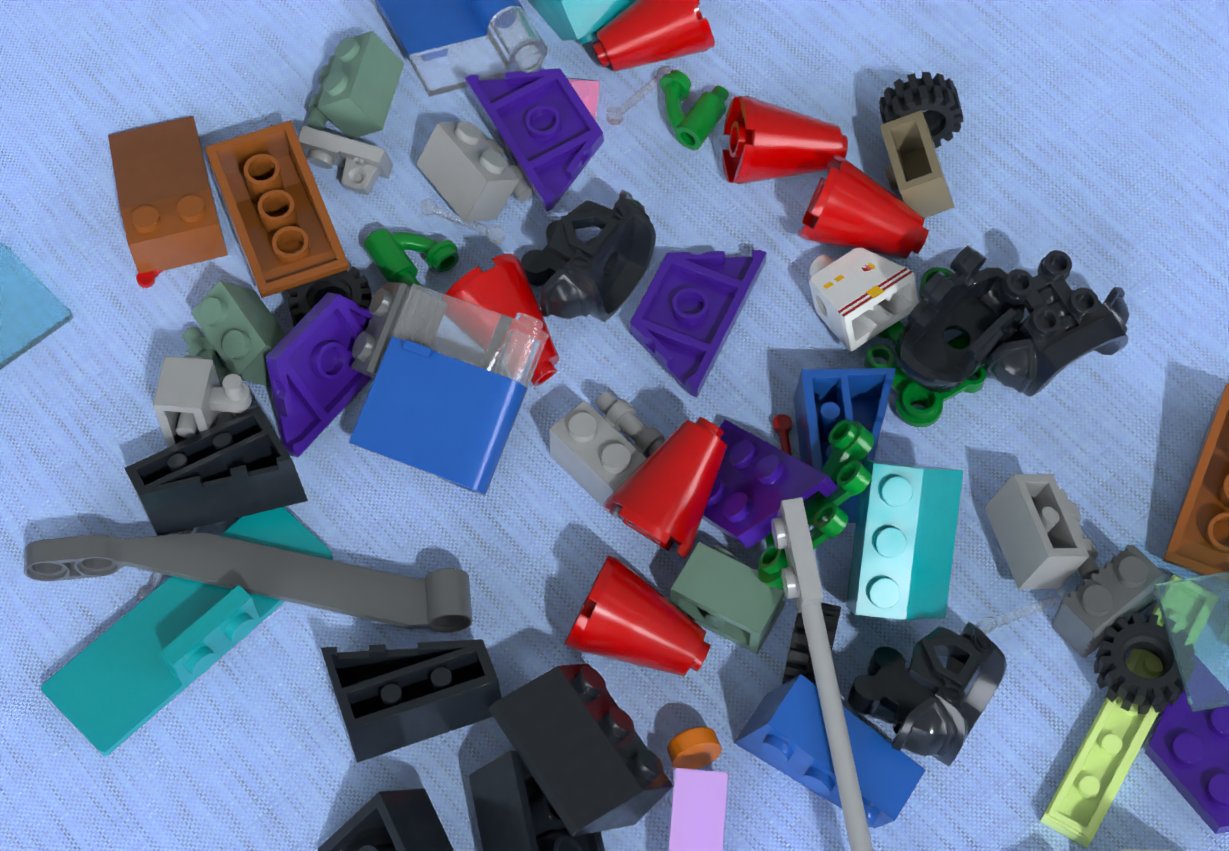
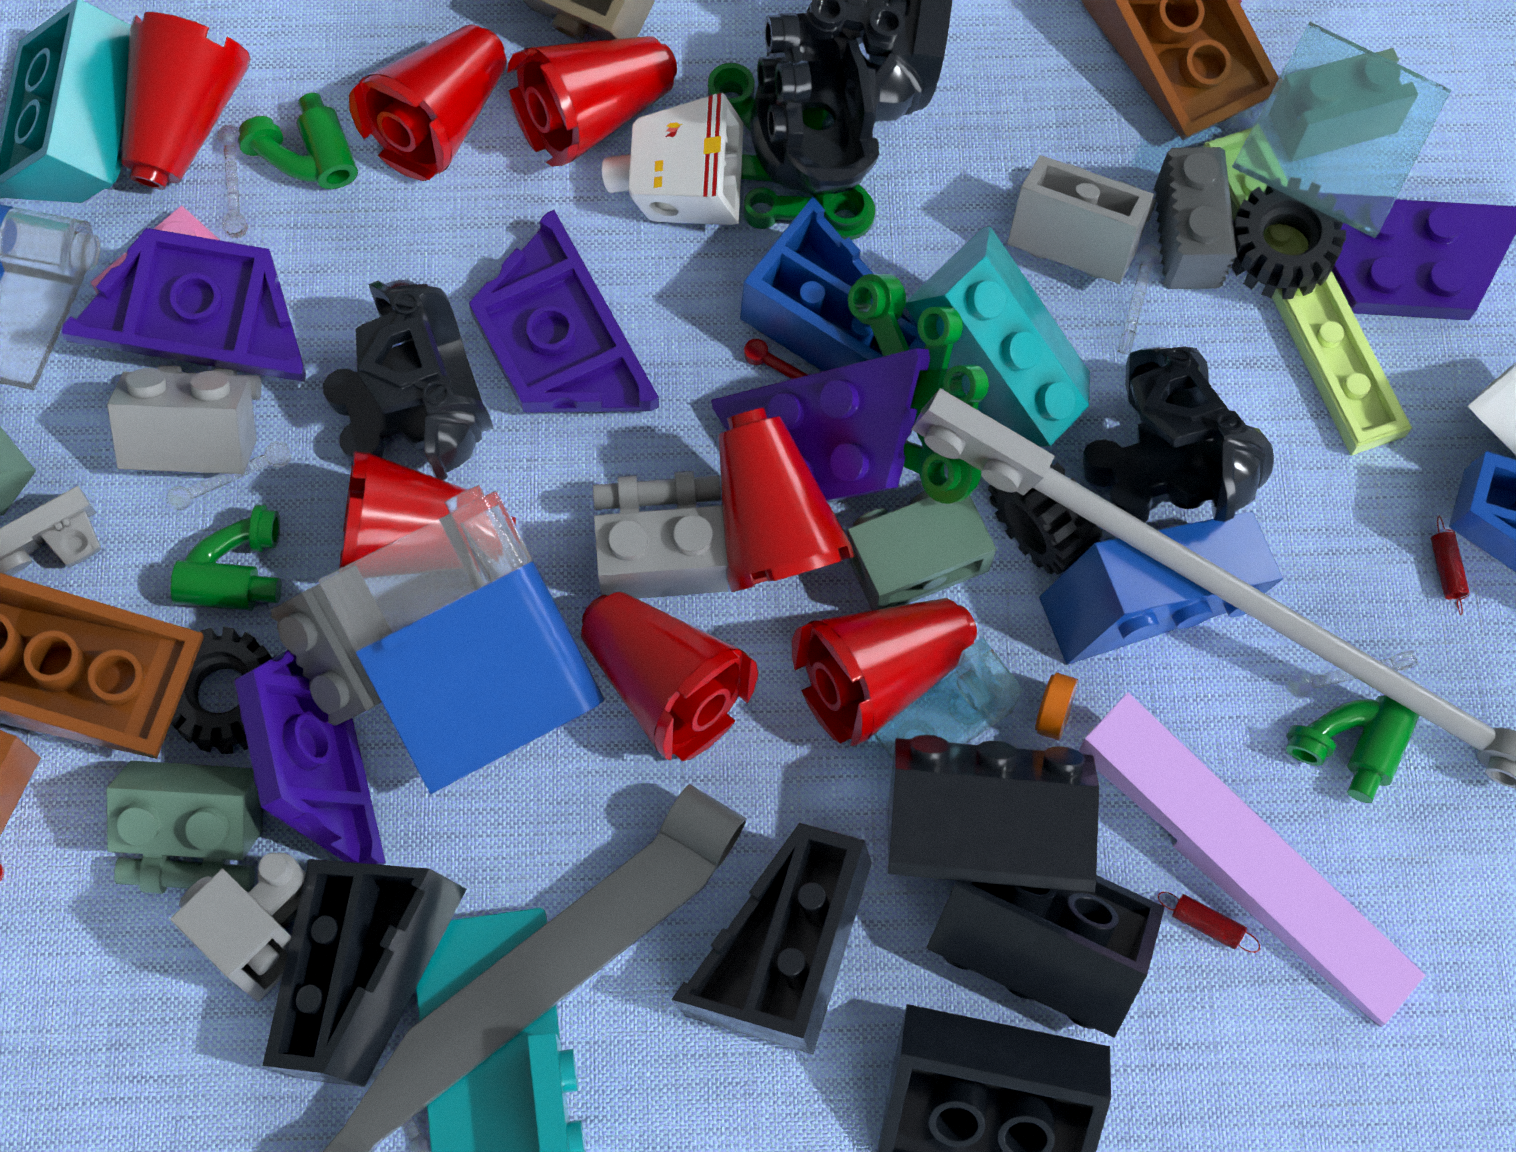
camera: 55 degrees left, 10 degrees up
(524, 516) = (668, 672): none -> red cone
(644, 692) = (961, 704): none -> clear light blue bracket

